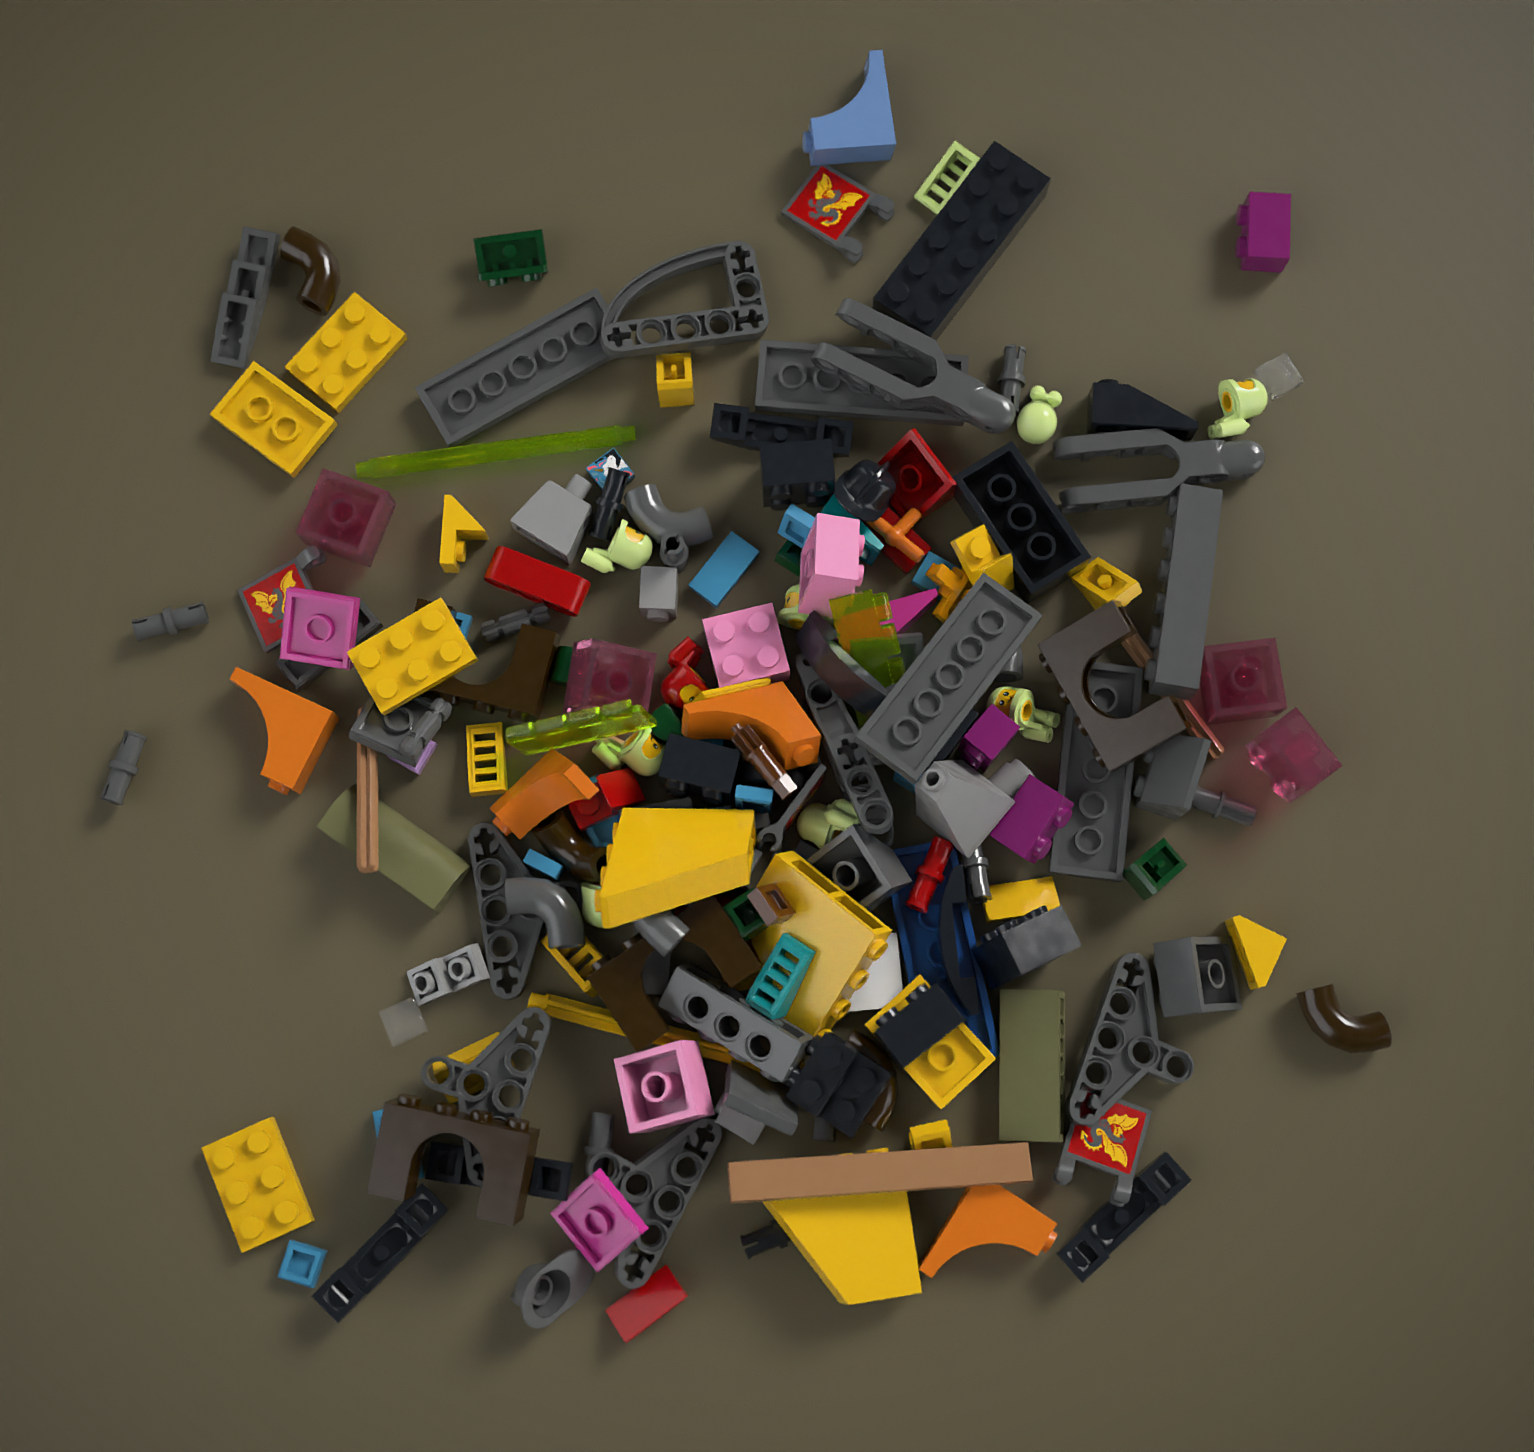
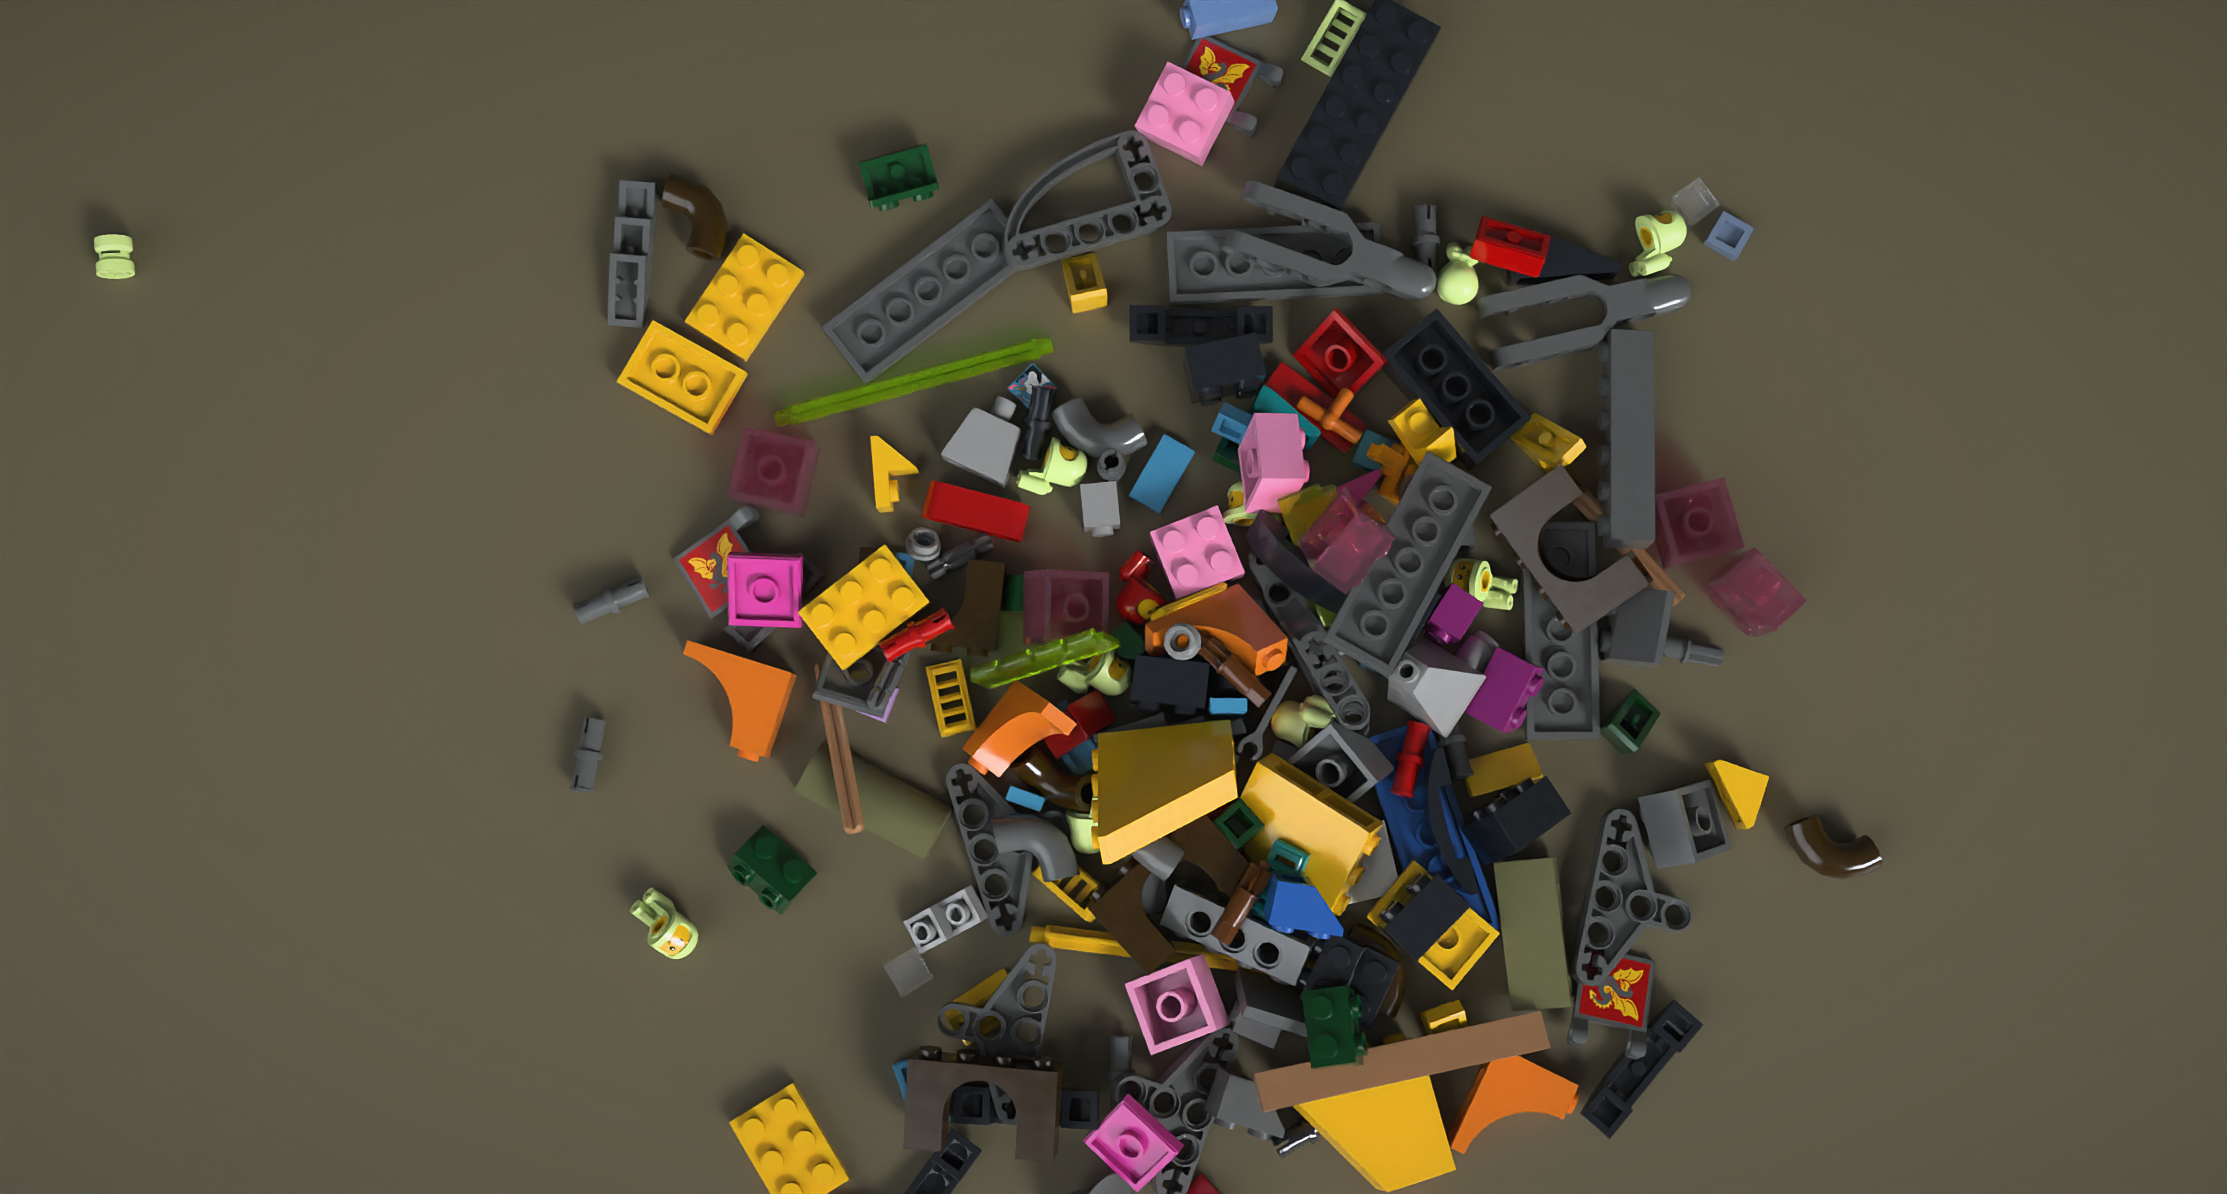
camera: 10 degrees left, 5 degrees up
(172, 948) = (669, 929): none -> yellowish green piece
(283, 902) = (771, 870): none -> dark green bracket
(458, 688) = (916, 634): none -> red pin
(481, 606) = (923, 544): none -> light grey plate
(707, 721) = (1171, 641): none -> light grey plate
(707, 1194) = (1236, 1102): none -> dark grey slope
(740, 989) = (1242, 901): none -> reddish brown piece
(771, 904) = (1260, 813): reddish brown tile -> none
(793, 230) = (1185, 113): none -> bright pink brick
(795, 999) = (1296, 904): none -> blue slope
(814, 1126) = (1334, 1027): none -> dark green bracket
(865, 490) = (1295, 377): black piece -> none
(890, 646) = (1346, 540): none -> clear pink brick
(1091, 392) = (1510, 246): none -> red slope
(1264, 232) = (1663, 53): magenta brick -> none
(1308, 412) = (1728, 236): none -> sand blue tile

